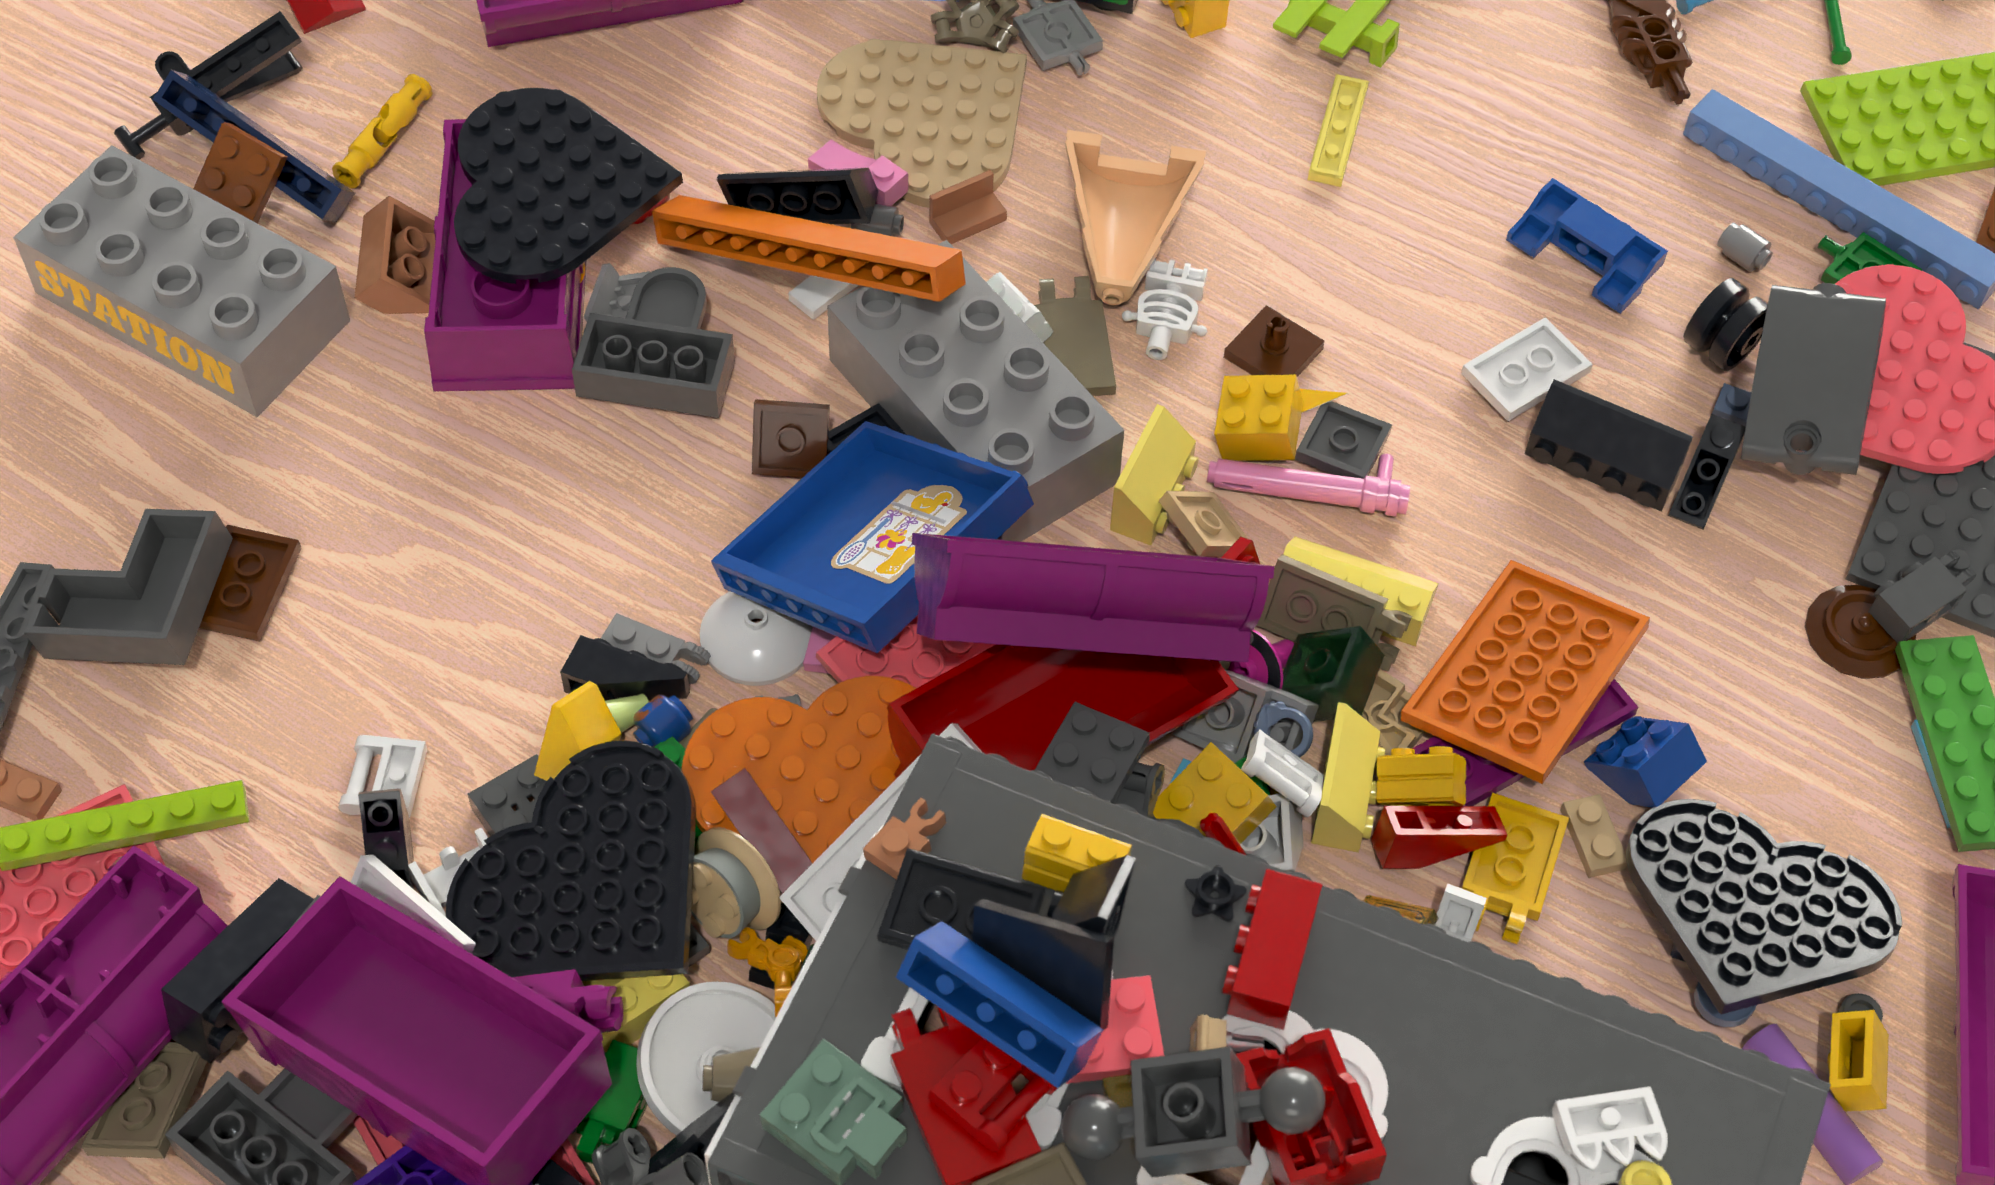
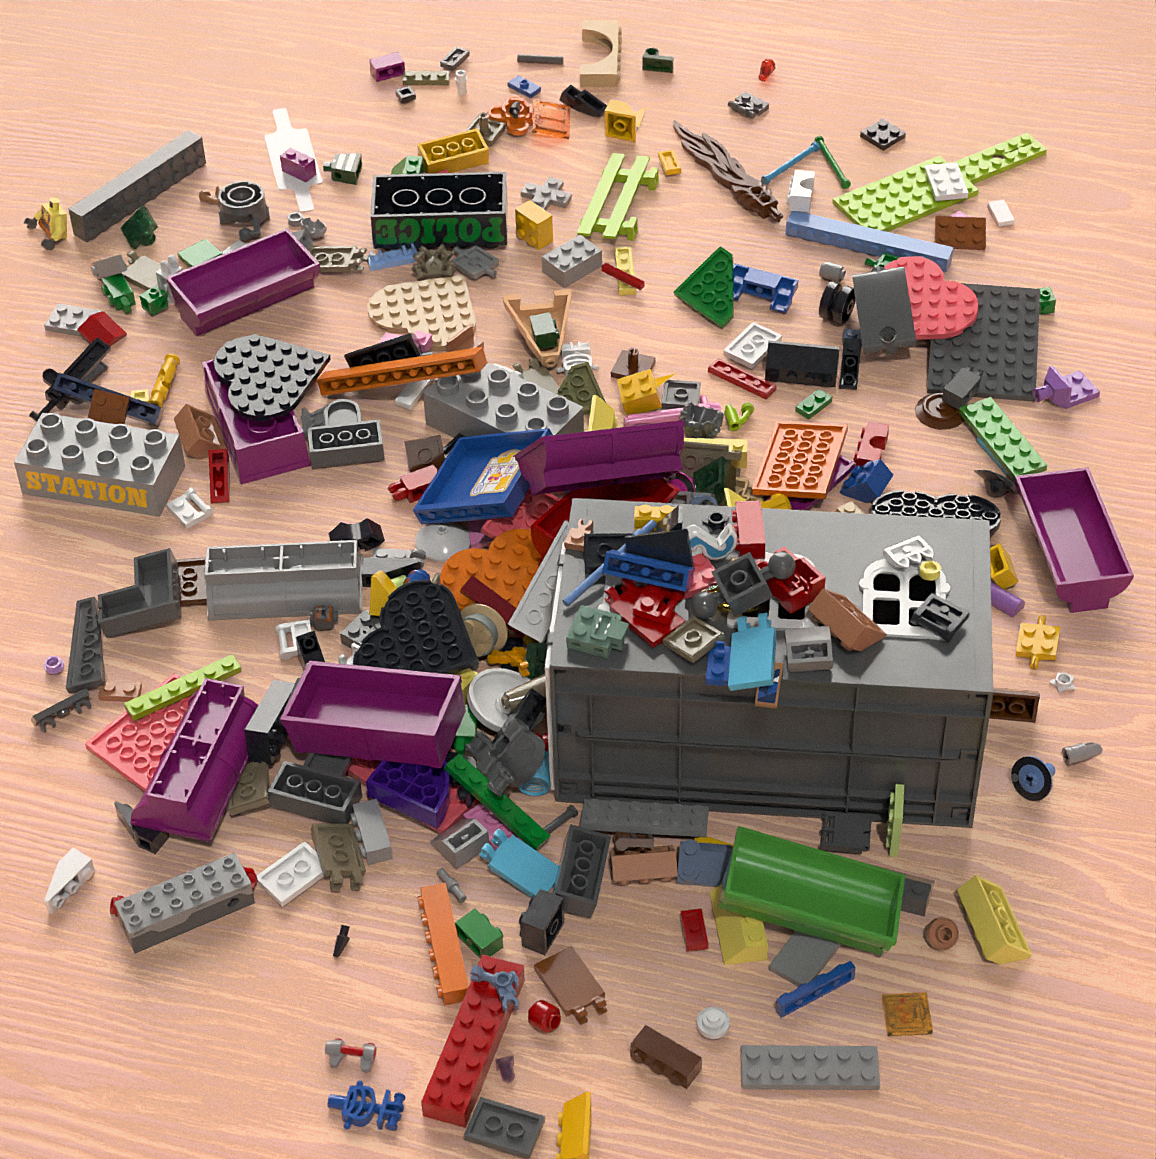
camera: 15 degrees left, 10 degrees down
(303, 421) = (185, 512): none -> white plate
(328, 149) = (141, 394): none -> light yellow tile
(394, 366) = (219, 476): none -> red slope
(409, 642) = (283, 579): none -> light grey piece
(456, 744) = (323, 617): none -> dark grey head
(591, 578) = (366, 533): none -> black brick
(745, 492) = (412, 484): none -> hinge
(1017, 896) = (577, 592): none -> medium blue bar
(1124, 225) = (544, 330): none -> brick
(1145, 374) = (580, 386): none -> olive plate
(1167, 966) = (711, 547): none -> white animal
(1241, 82) = (571, 261): none -> light grey brick
(1326, 143) = (623, 276): none -> red axle
(1356, 519) = (701, 421): none -> dark grey hair
(1426, 520) = (732, 418): none -> lime plant
(1479, 438) = (742, 378): none -> red tile
(1488, 219) = (711, 288): none -> green plate
(1603, 538) = (813, 404): none -> plate
(1699, 657) = (873, 441): none -> arch
(1737, 55) = (800, 191): none -> white arch
(1918, 844) = (996, 483): none -> black hat

